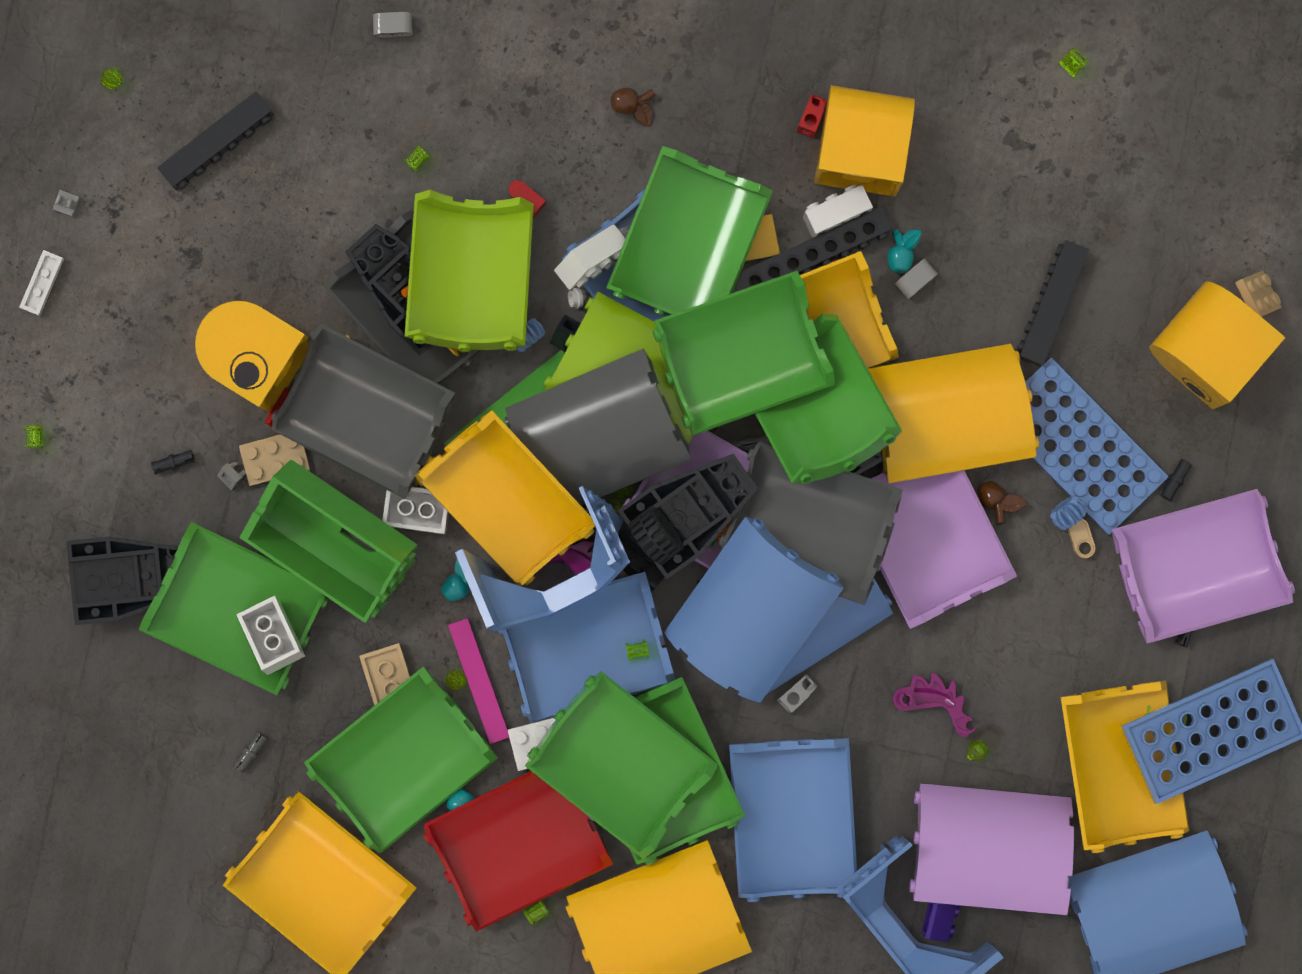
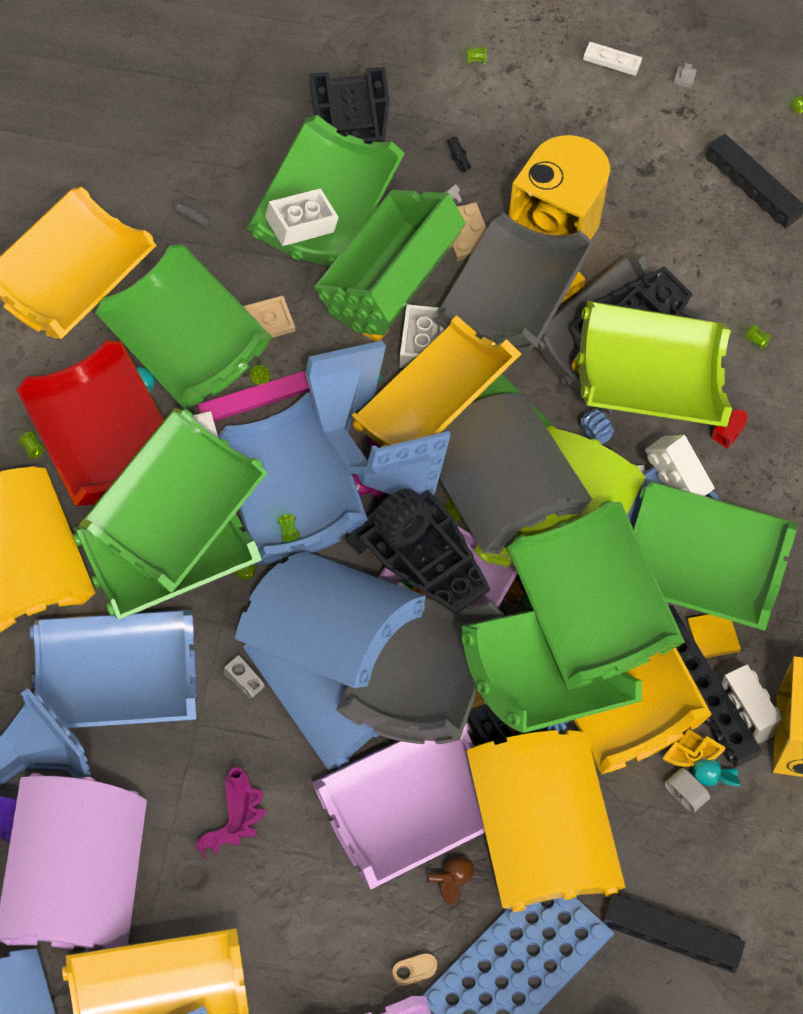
camera: 85 degrees right, 25 degrees down
(880, 269) = (693, 748): none -> yellow brick
(977, 751) = (180, 859): clear neon green plate -> none
(1068, 512) = (442, 949): medium blue gear -> none

